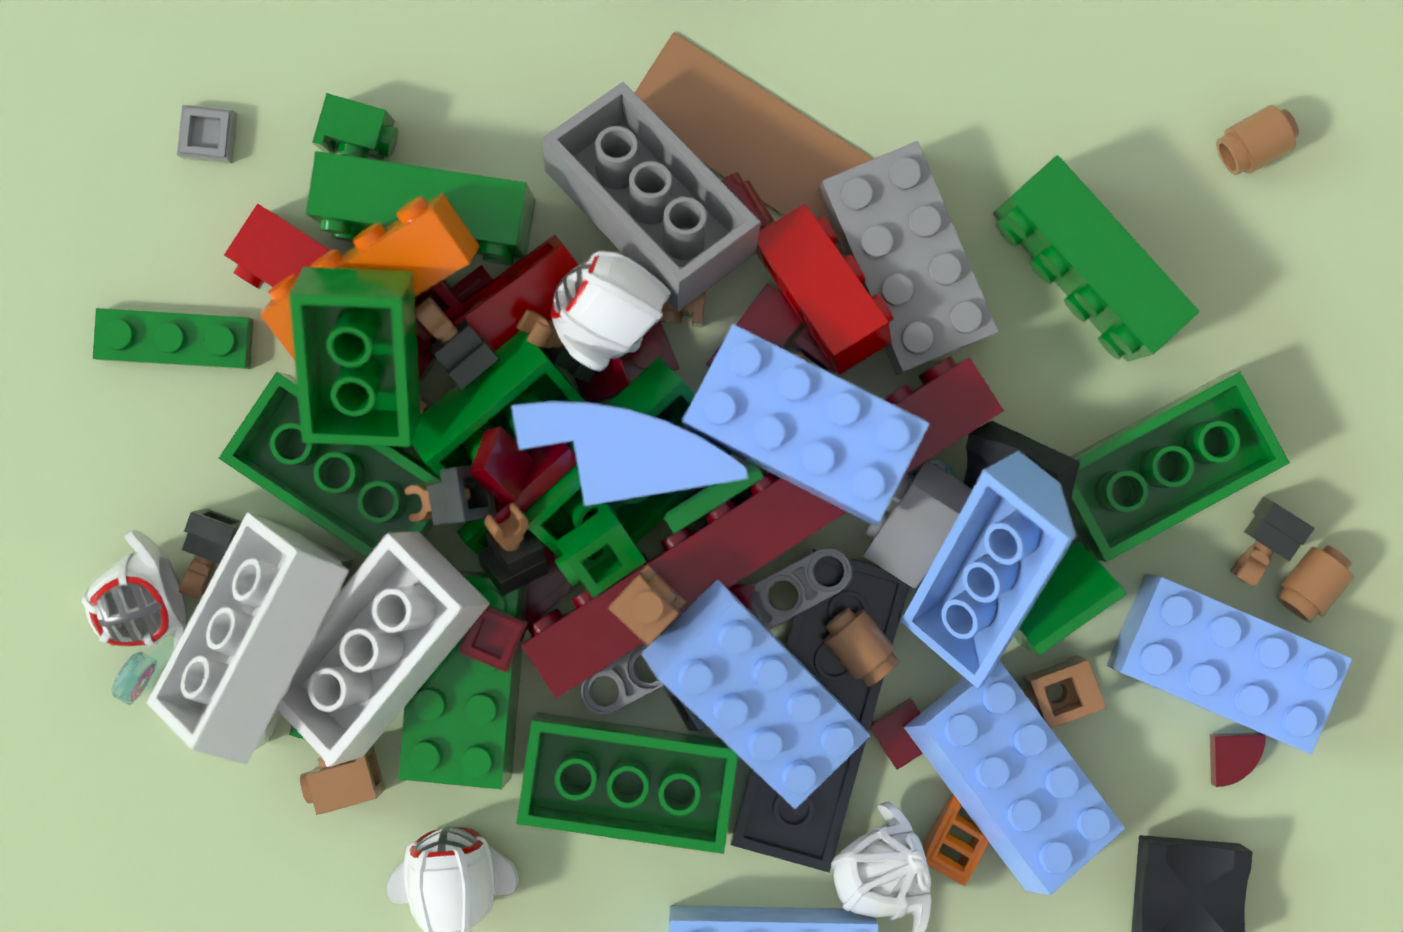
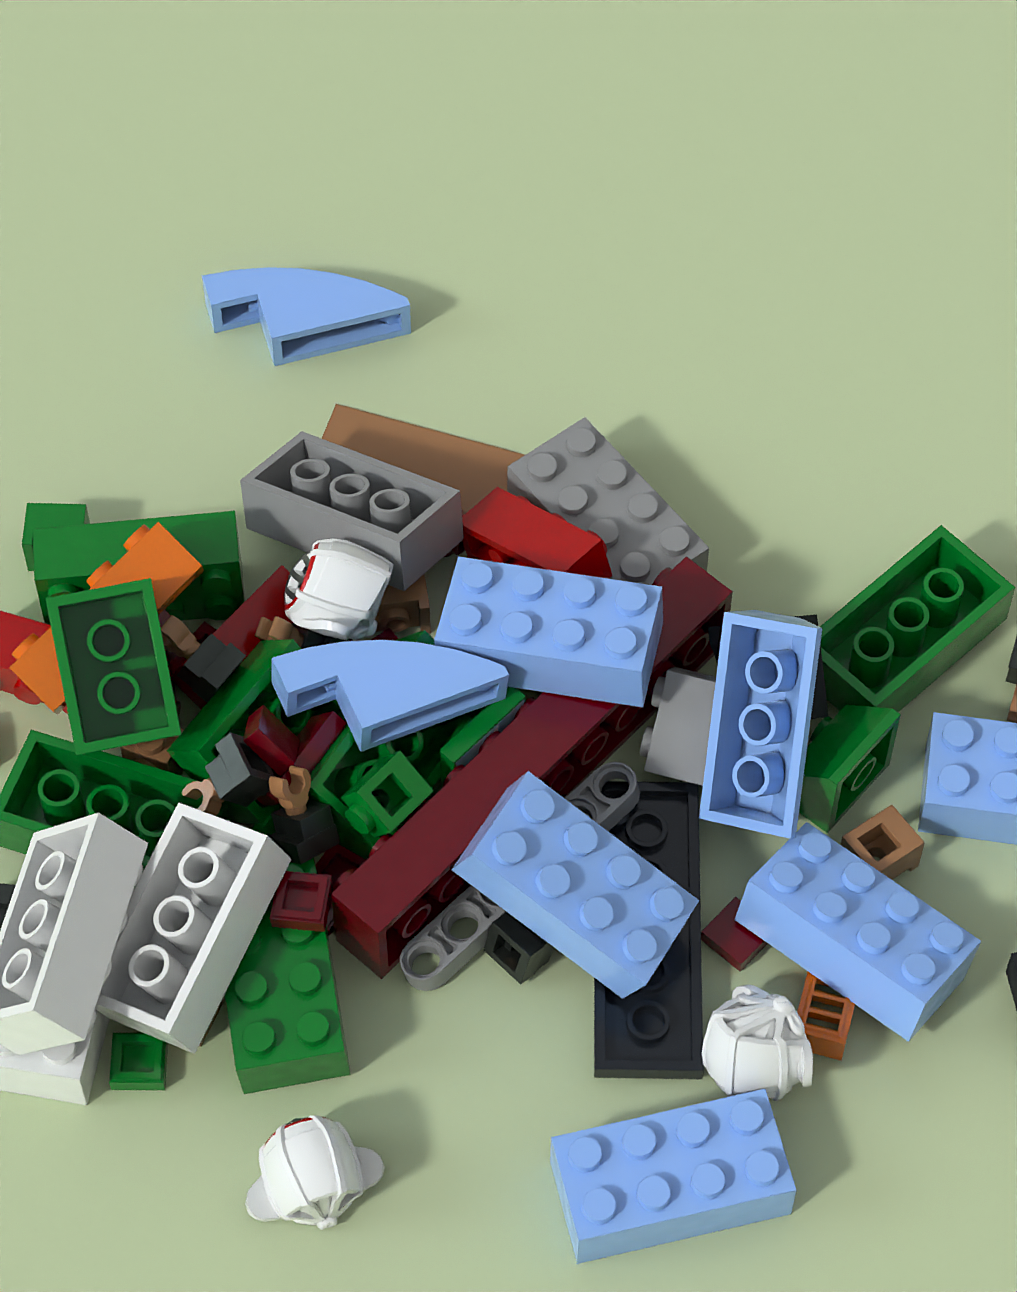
camera: 15 degrees left, 30 degrees down
(342, 784) = (176, 1107): medium nougat brick -> none
(627, 783) = (473, 1028): green brick -> none
(647, 605) = (447, 805): medium nougat brick -> none
(860, 646) = (666, 841): medium nougat brick -> none
(1094, 263) = (777, 477): green brick -> none
(1258, 140) = (893, 363): medium nougat brick -> none

